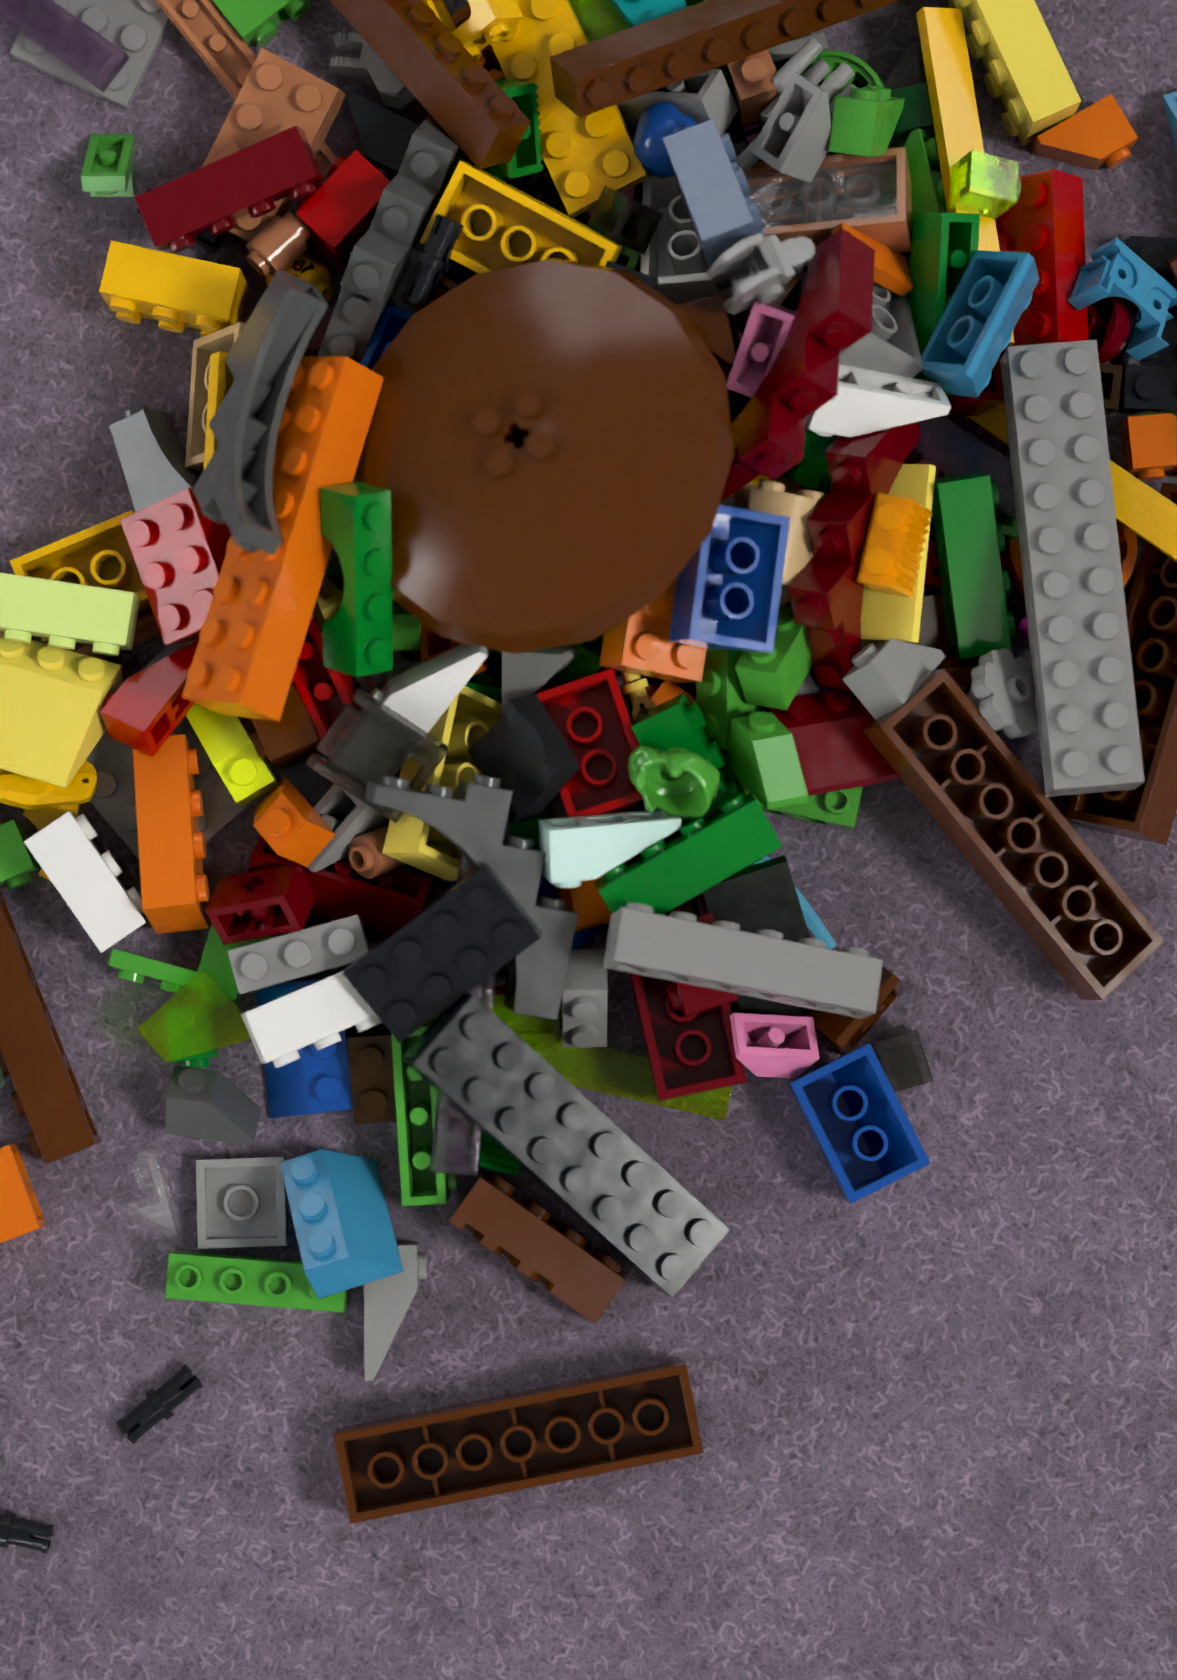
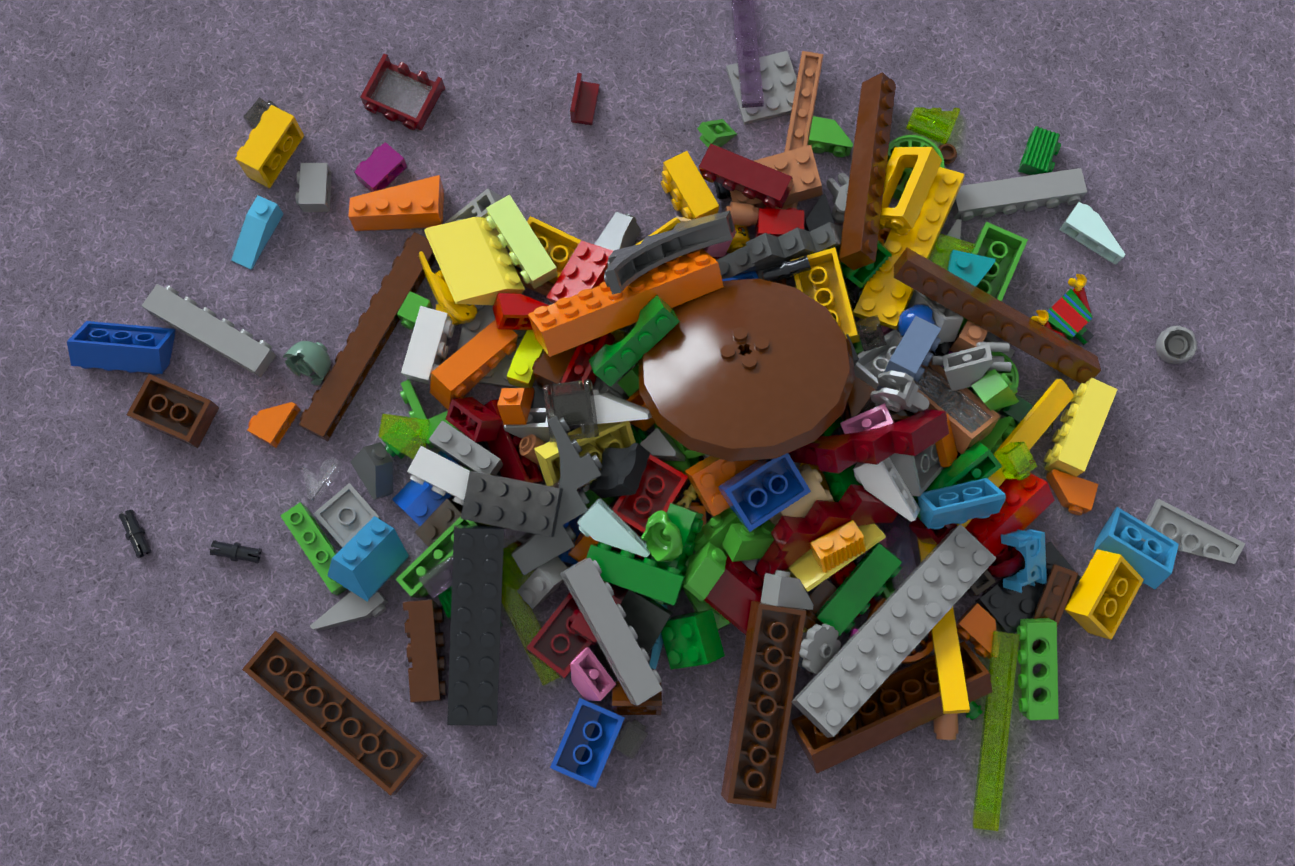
camera: 45 degrees right, 10 degrees down
(843, 858) = (692, 639): none -> green brick

